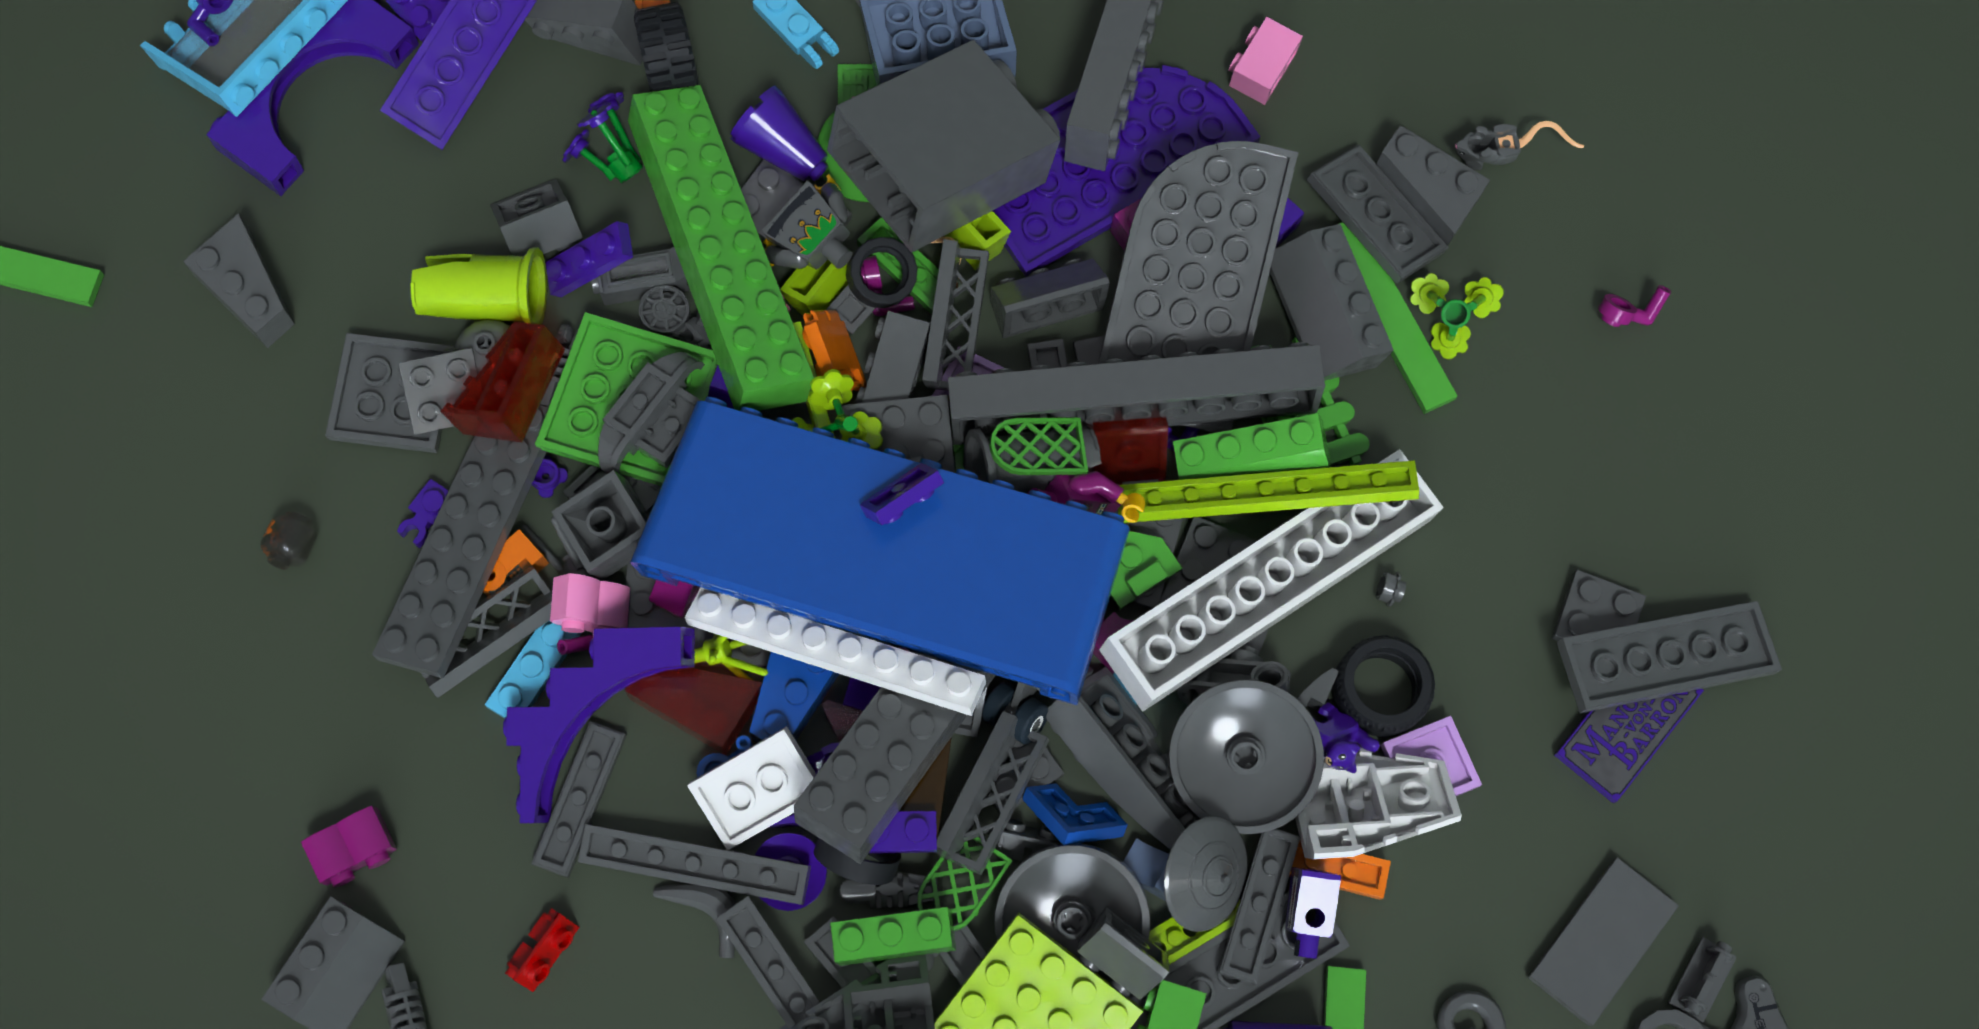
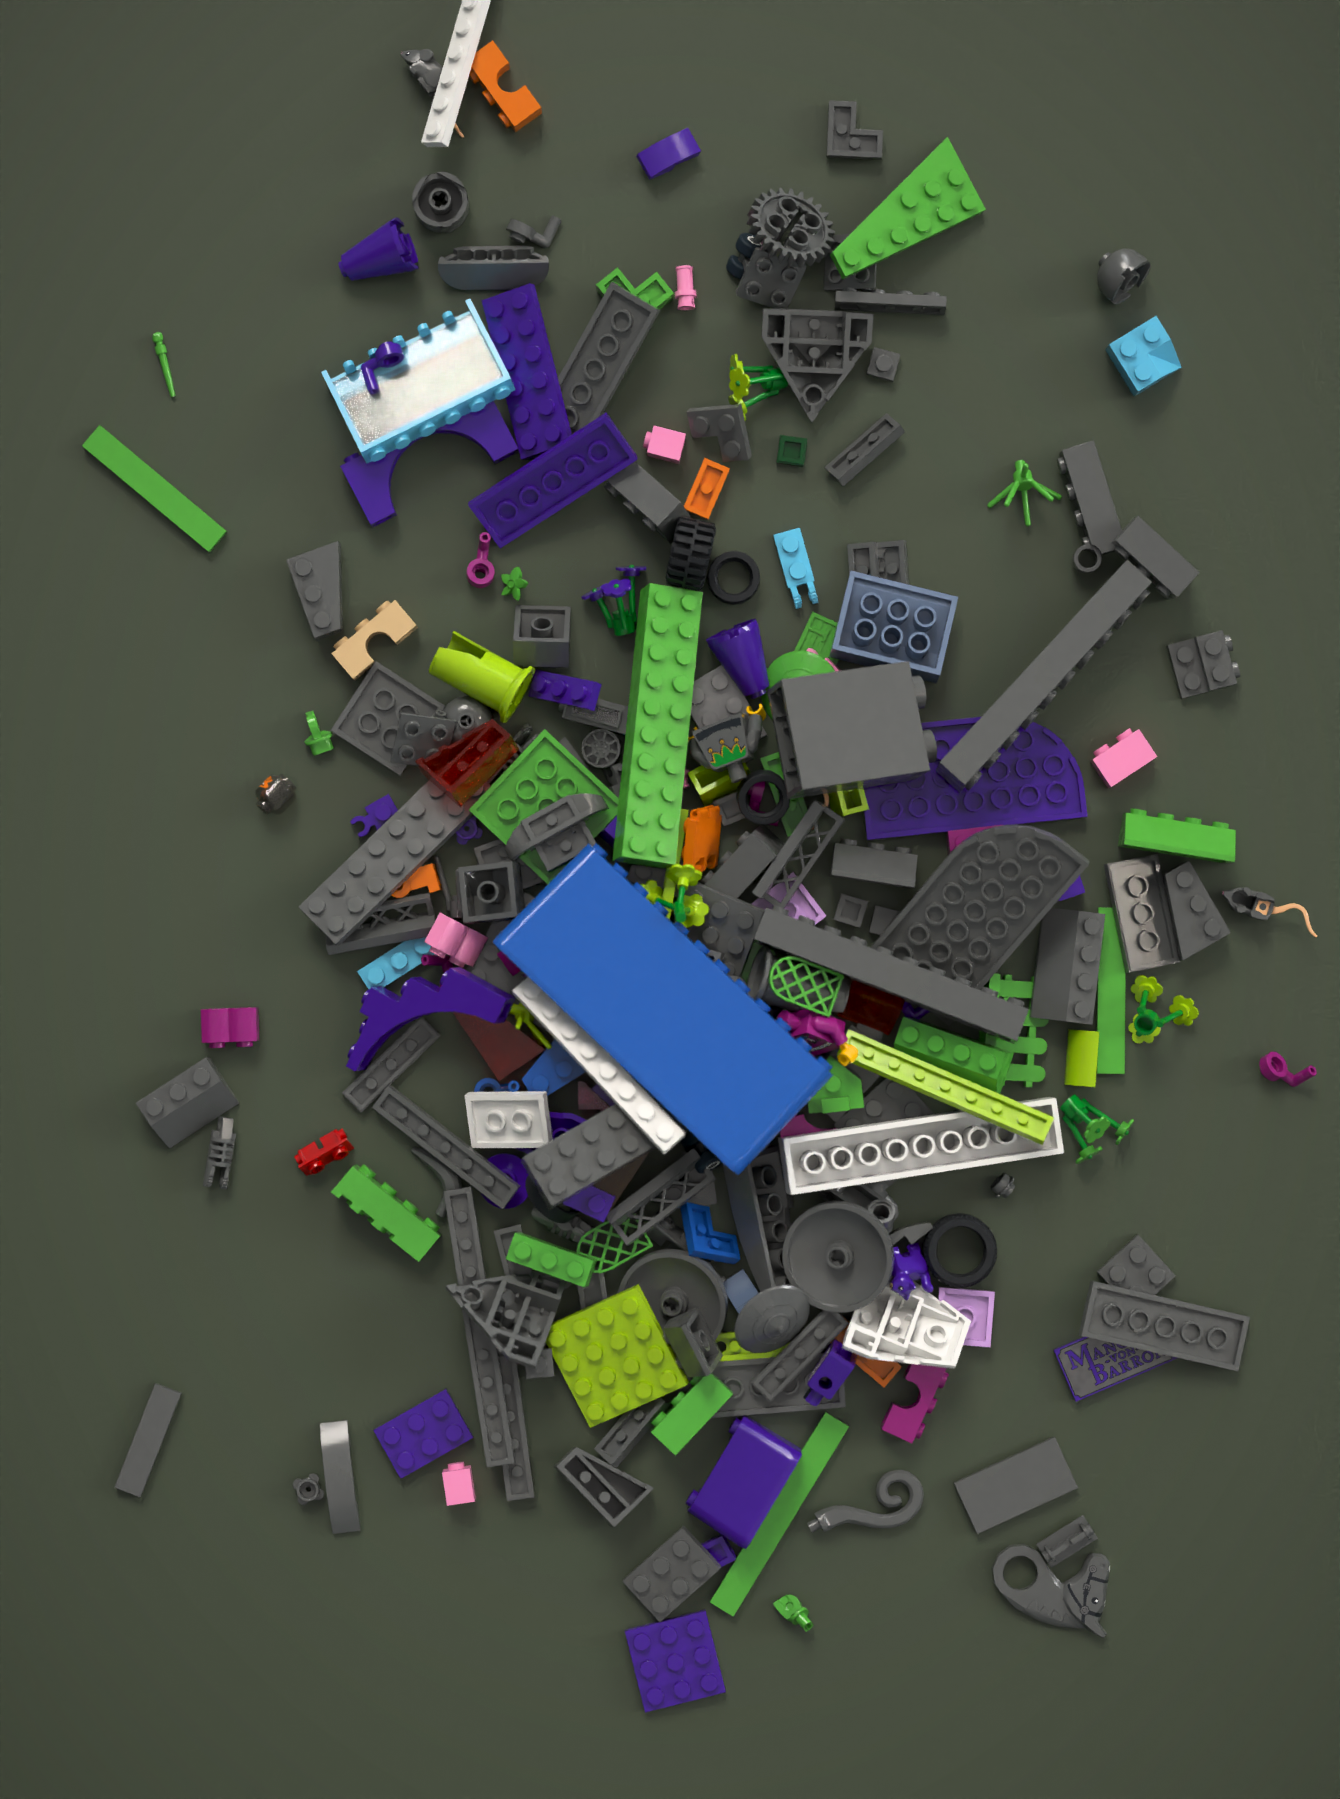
camera: 30 degrees right, 15 degrees up
(318, 458) = (319, 740): none -> bright green piece
(343, 284) = (390, 621): none -> tan arch
(429, 182) = (481, 564): none -> magenta plate
(477, 179) = (513, 583): none -> bright green plant
(654, 983) = (387, 1211): none -> bright green wedge
(723, 41) = (721, 560): none -> black tyre
(908, 489) = (690, 985): dark purple plate -> none
(1372, 115) = (1177, 838): none -> bright green slope
(1401, 399) = (1081, 1058): none -> lime brick
(1428, 860) = (907, 1420): none -> magenta arch
(1430, 459) = (1078, 1111): none -> plant

